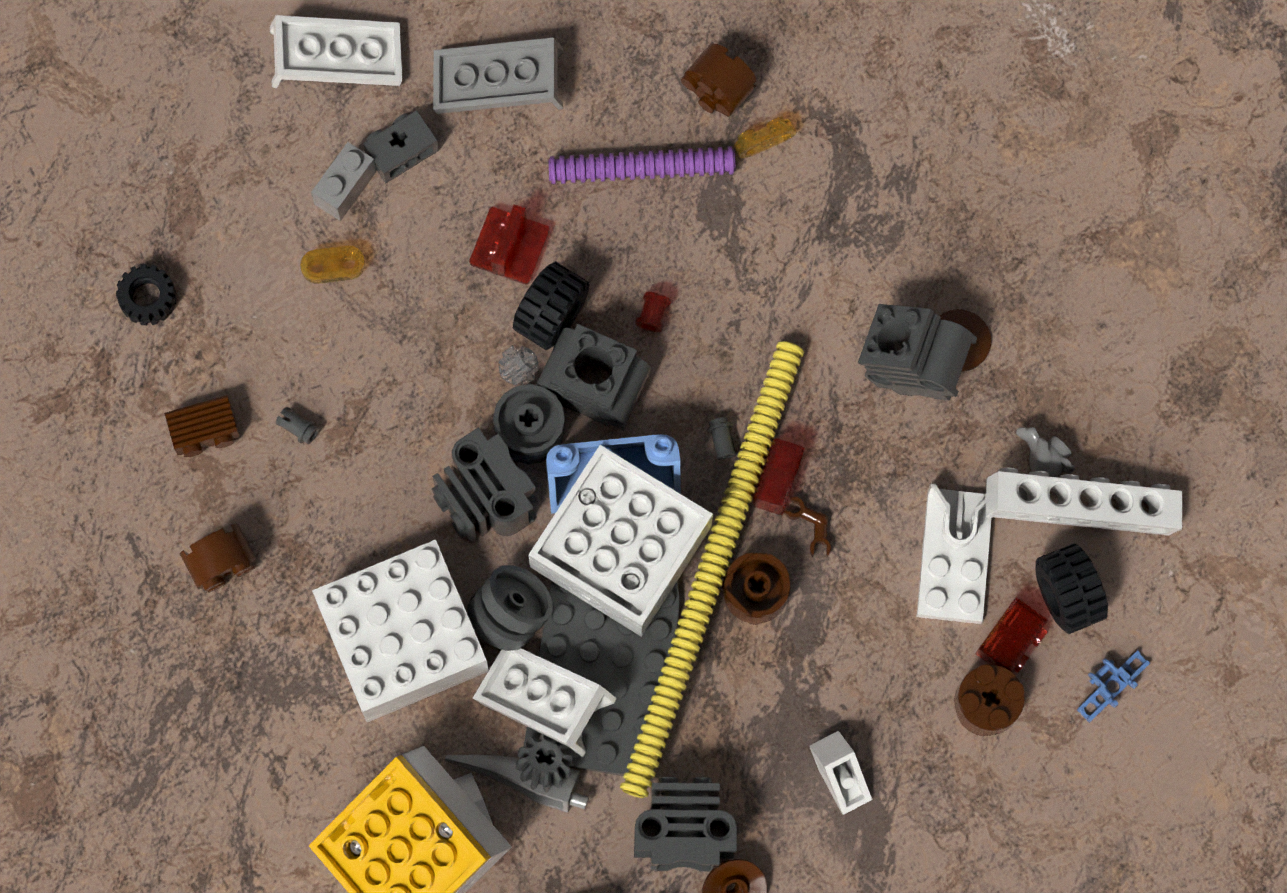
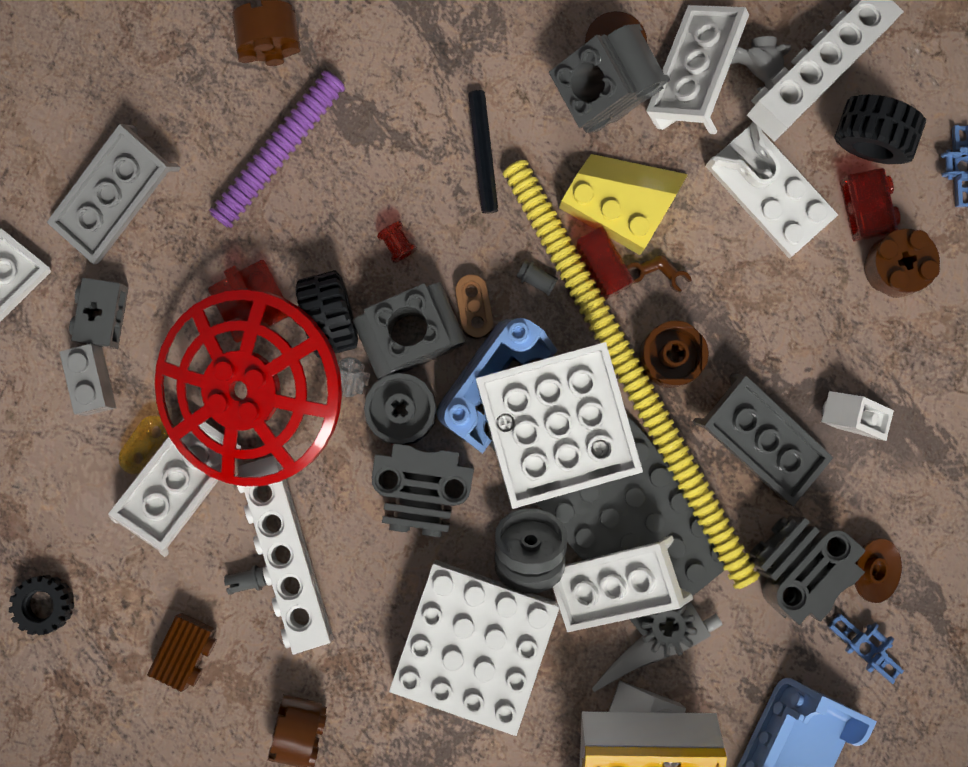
camera: 45 degrees left, 10 degrees up
(308, 508) = (317, 630): none -> white brick
(325, 308) = (168, 491): none -> white plate
(453, 304) = (261, 382): none -> red dish
(655, 411) = (474, 306): none -> medium nougat plate
(755, 715) = (765, 439): none -> dark grey plate
(775, 133) = (342, 29): clear yellow plate -> none
(781, 315) = (483, 151): none -> black axle
(842, 448) = (622, 198): none -> light yellow wedge
(991, 413) = (698, 65): none -> white plate

